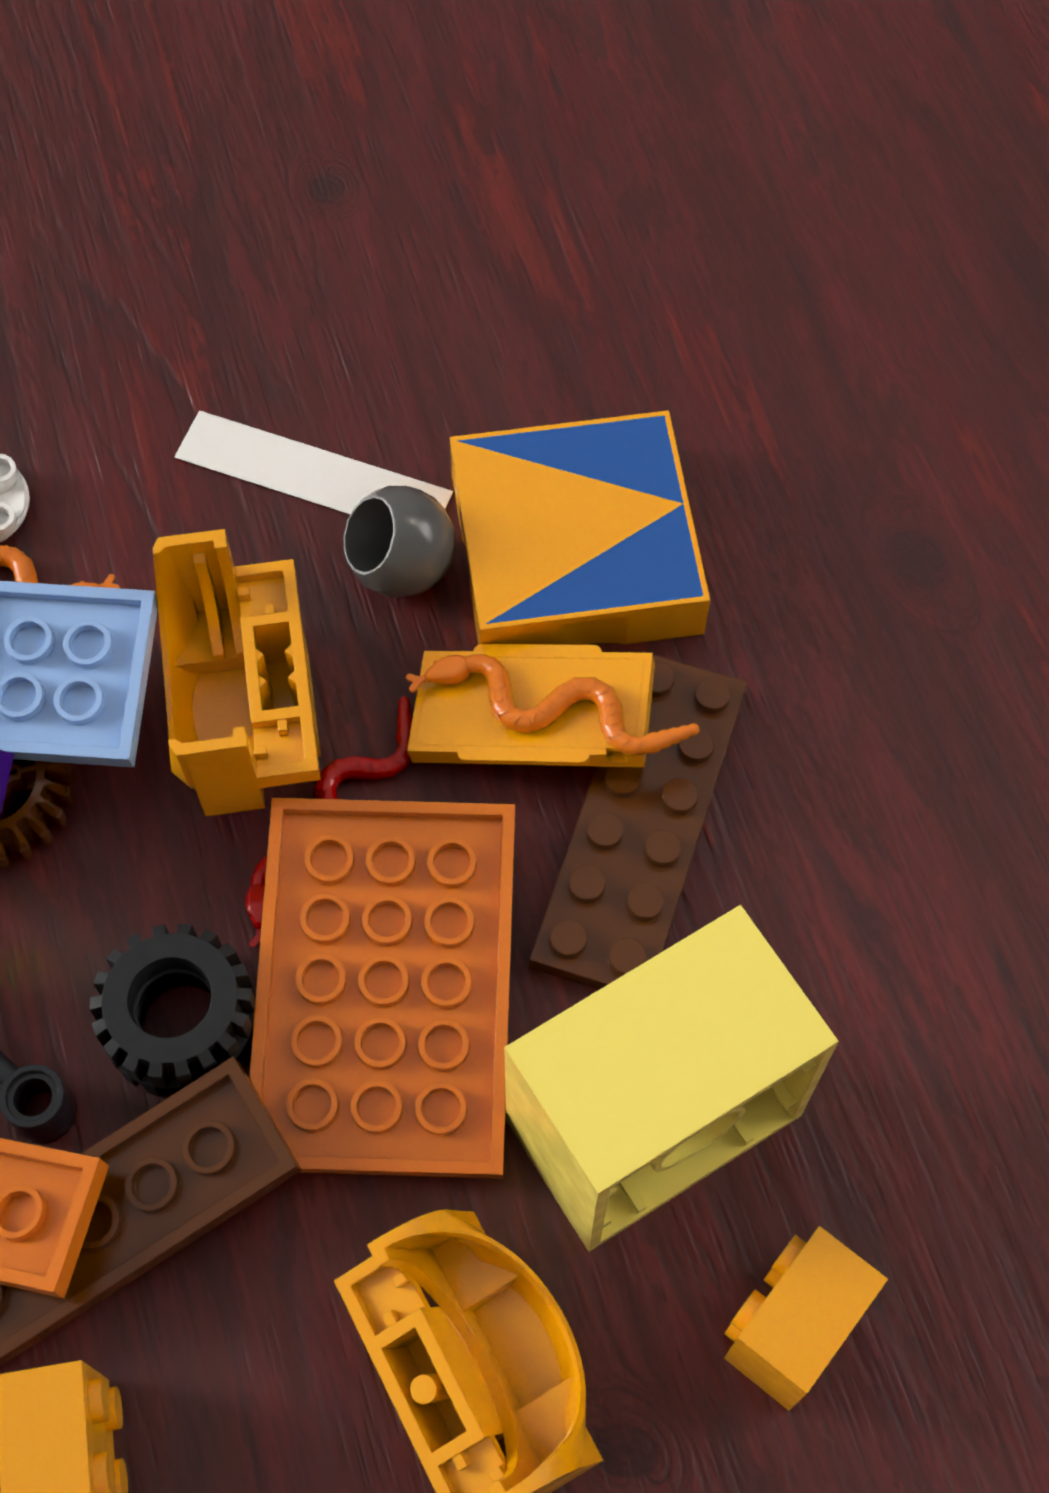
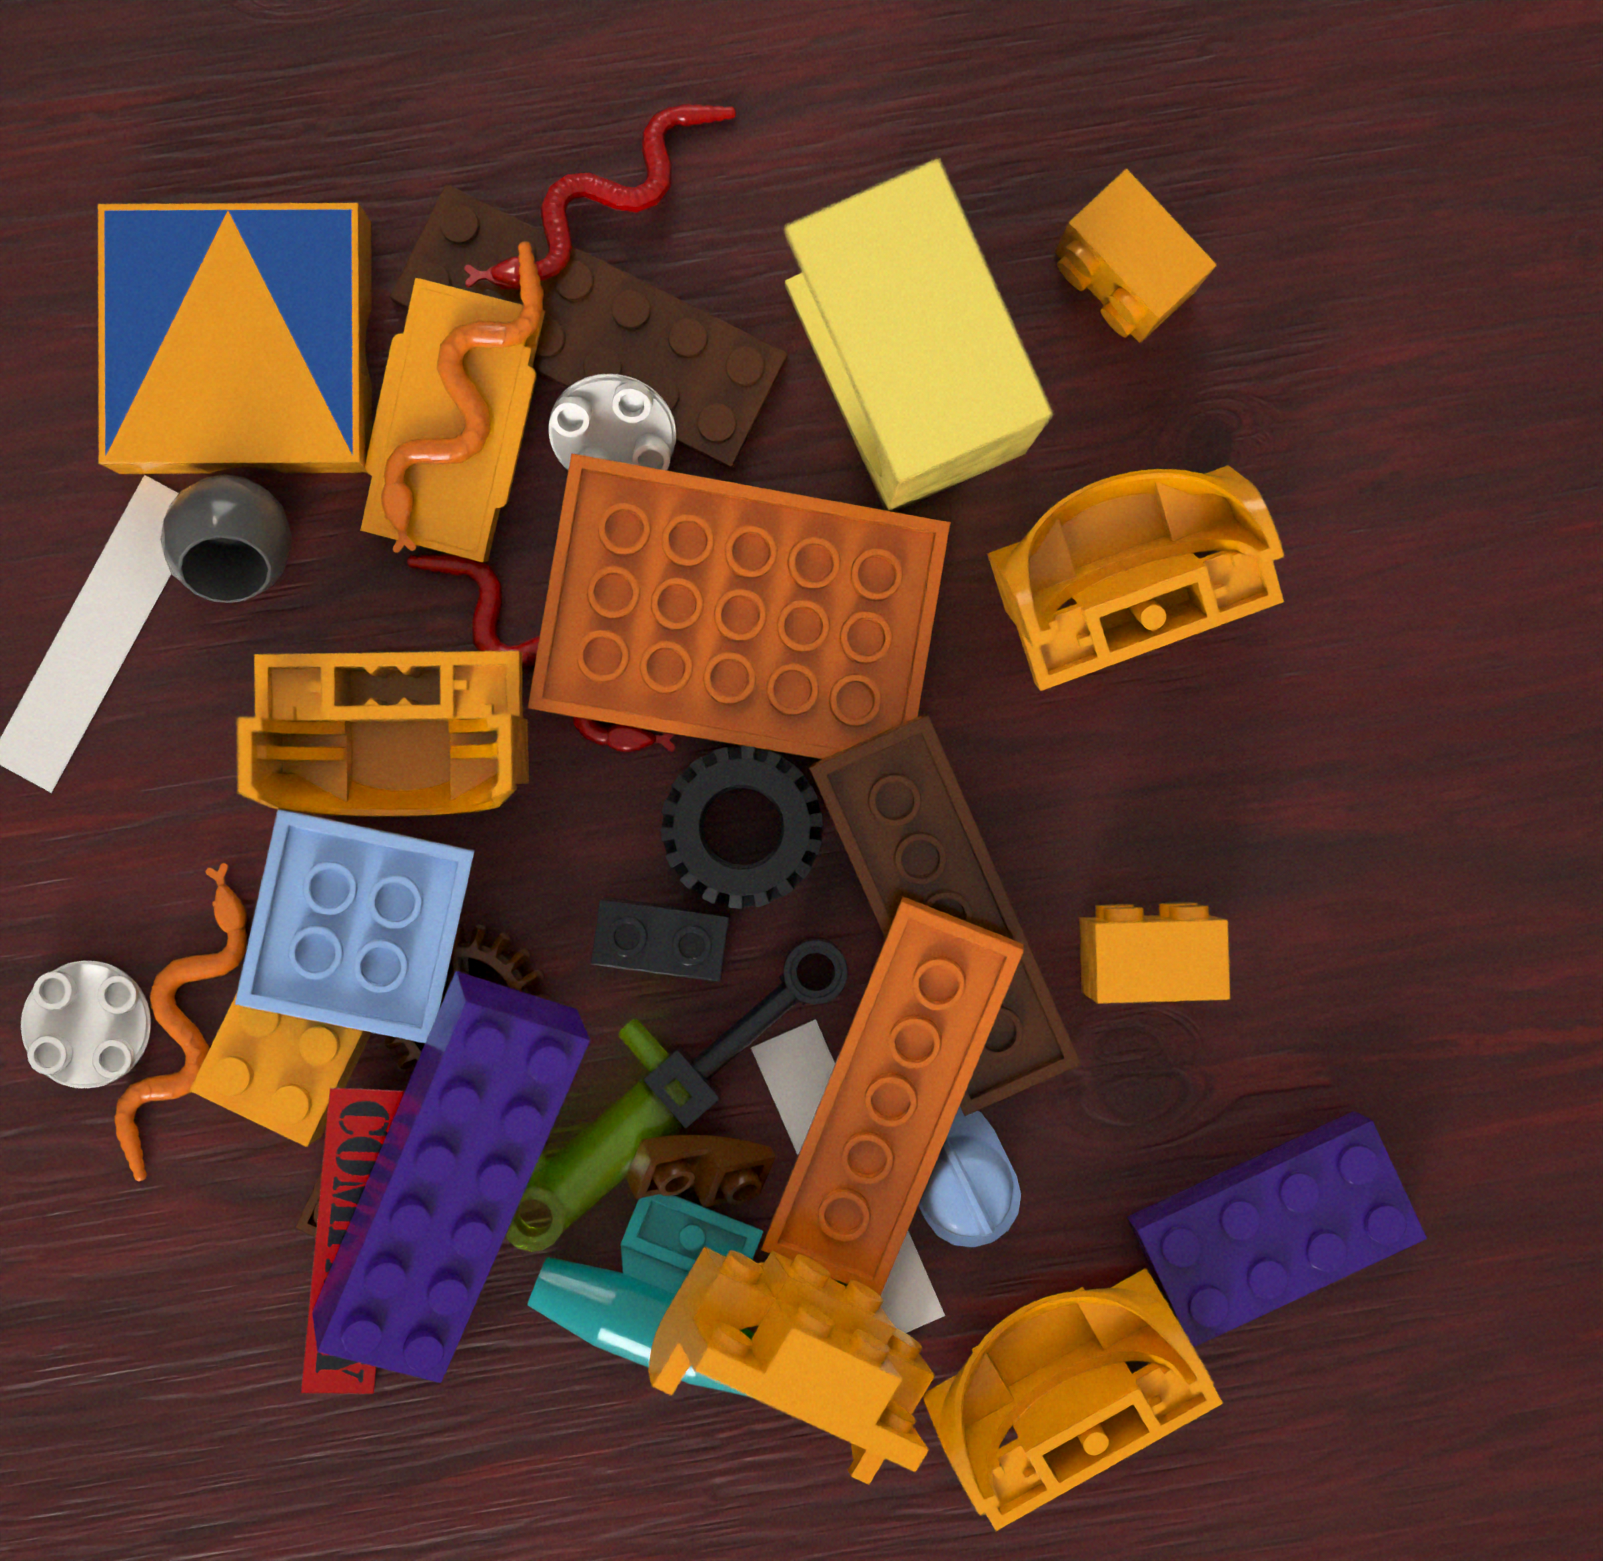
camera: 80 degrees left, 25 degrees up
(62, 951) = (660, 938): none -> black brick
(550, 844) = (613, 421): none -> white dish
(767, 814) = (605, 192): none -> red animal

